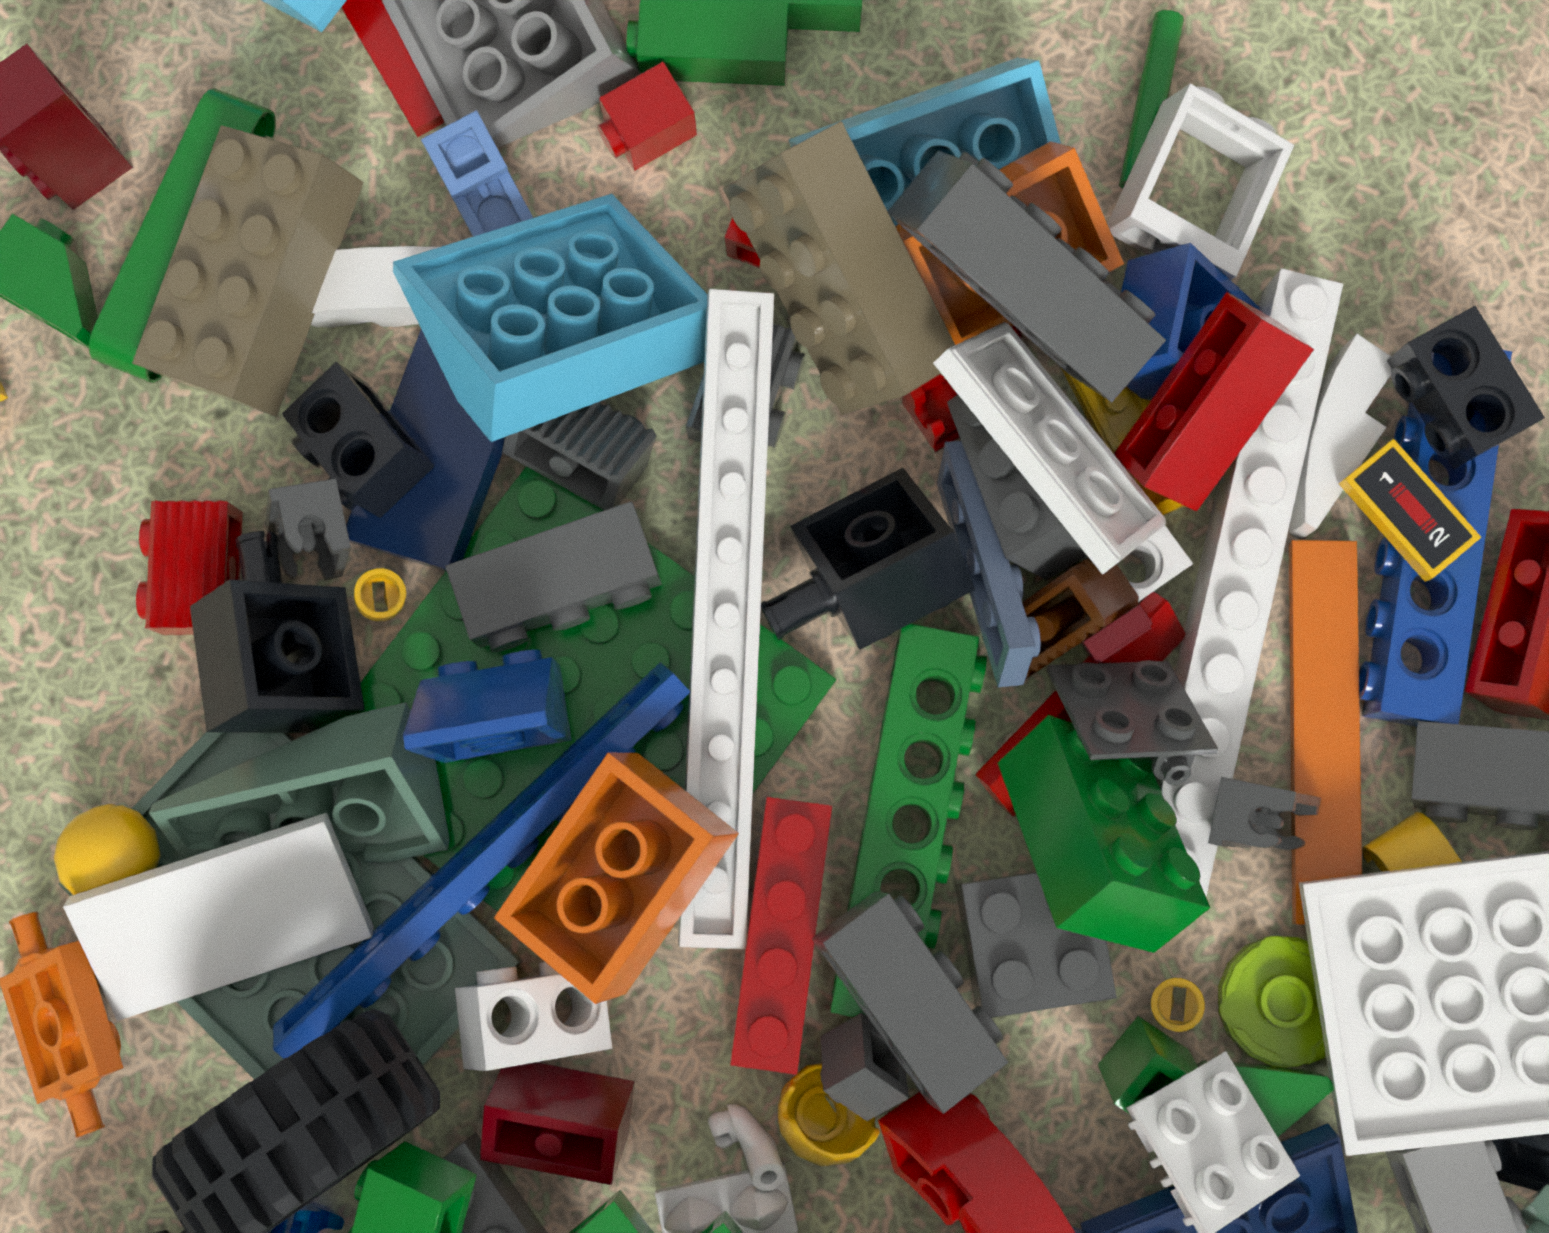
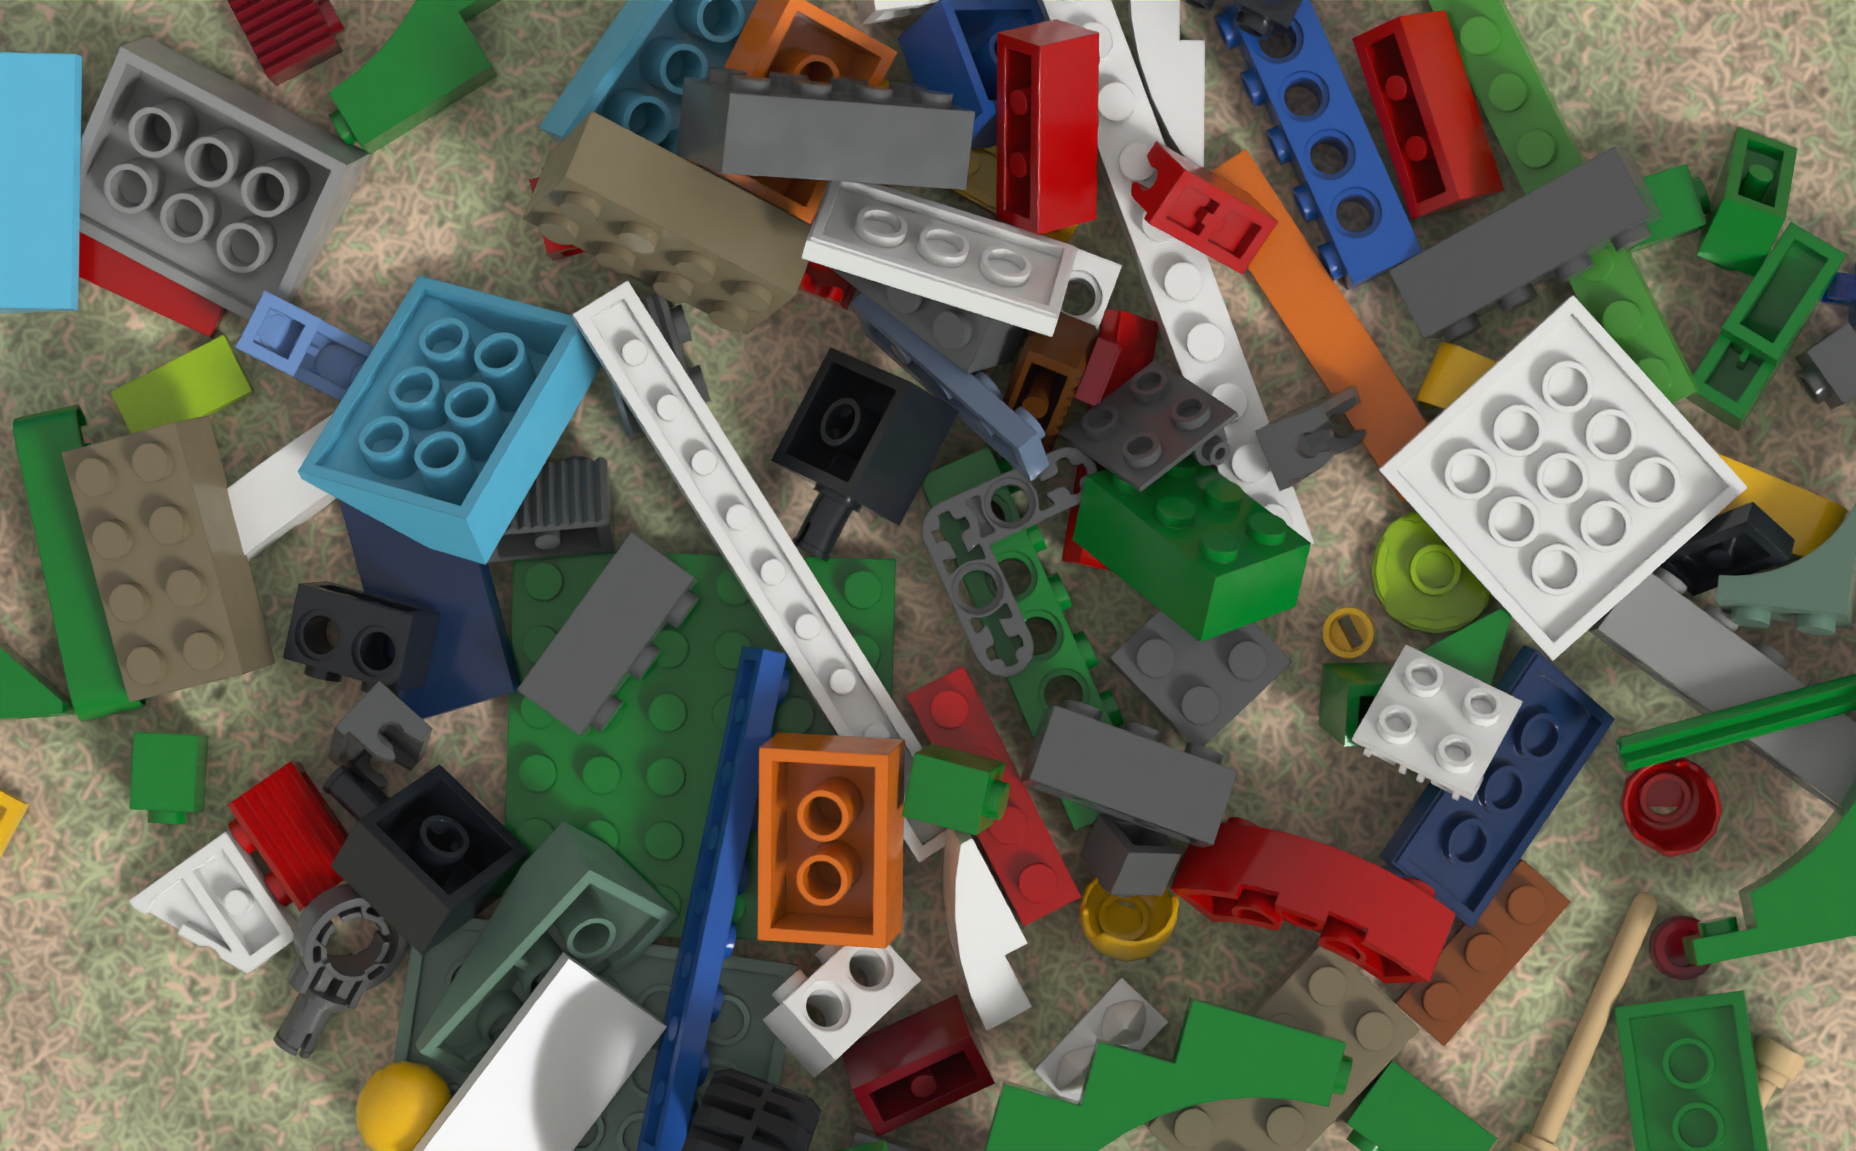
camera: 30 degrees left, 5 degrees up
(94, 583) = (222, 904): none -> white wing
(127, 448) = (168, 775): none -> green brick
(130, 700) = (333, 981): none -> dark grey pin
(384, 160) = (184, 388): none -> lime tile
(393, 594) = (478, 741): yellow hinge -> none
(488, 709) = (635, 777): blue slope -> none
(646, 117) = (403, 191): red brick -> none
(692, 1042) = (981, 932): none -> white slope
(752, 907) = (956, 789): none -> green brick
(757, 1145) = (1086, 975): white arm -> none
(929, 705) = (987, 530): none -> dark grey beam
(1297, 562) = (1203, 209): none -> red hinge
(1409, 510) = (1267, 101): tile -> none

